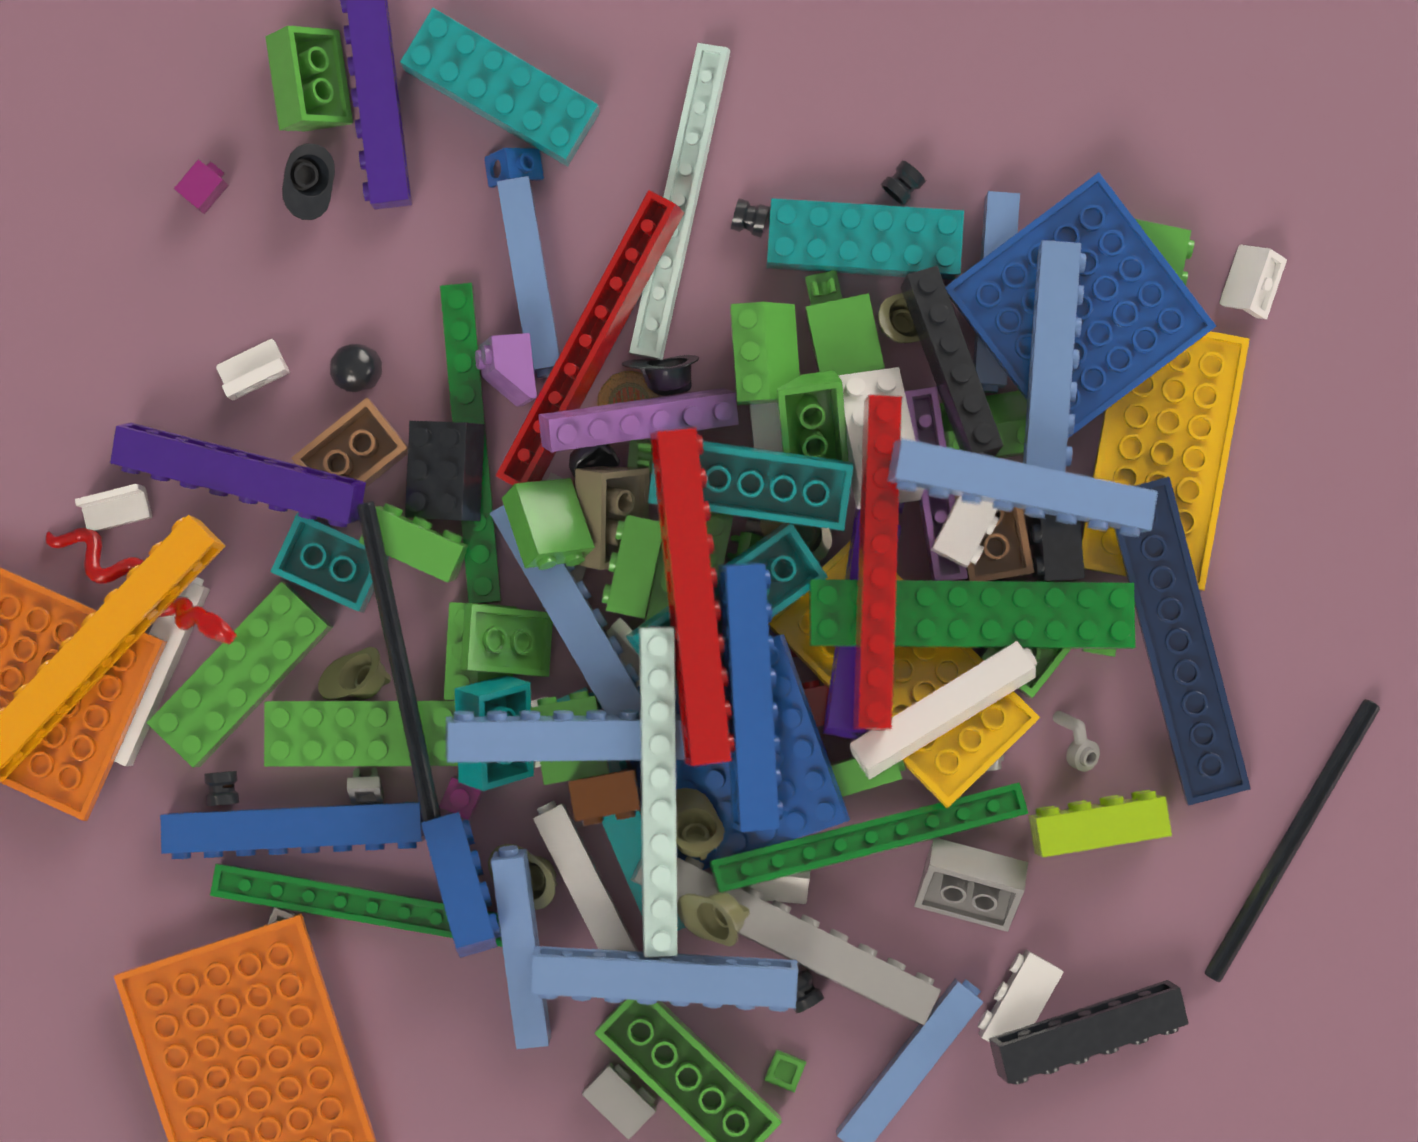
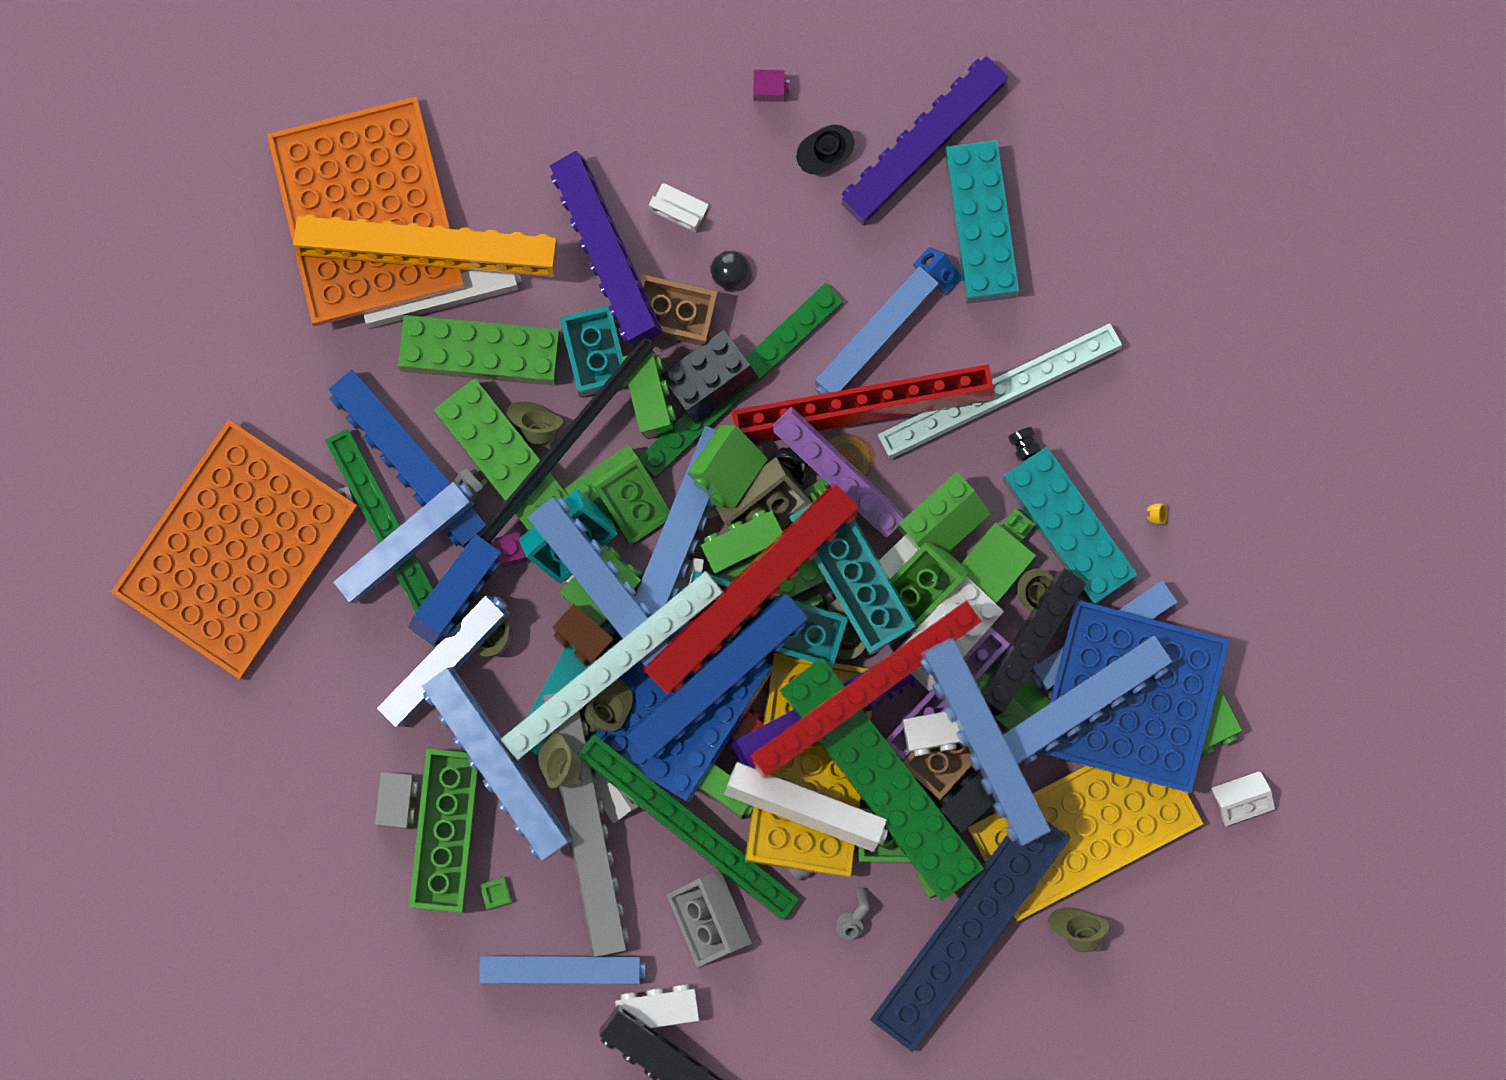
camera: 50 degrees right, 5 degrees down
(115, 507) = (523, 190): white panel -> none
(185, 614) = (493, 280): red animal -> none
(221, 788) = (398, 395): black wheel -> none
(308, 78) = (891, 98): bright green slope -> none
(373, 896) = (405, 542): none -> brick
(508, 366) = (807, 364): medium lavender slope -> none
(583, 878) = (519, 665): white brick -> none
(666, 375) = (881, 470): black piece -> none
(807, 994) = (555, 865): black wheel -> none
(903, 182) = (1132, 523): black wheel -> none
(917, 144) = (1158, 513): none -> yellow hinge
(1099, 825) = (811, 970): lime brick -> none
(1256, 535) = (1080, 928): none -> olive piece

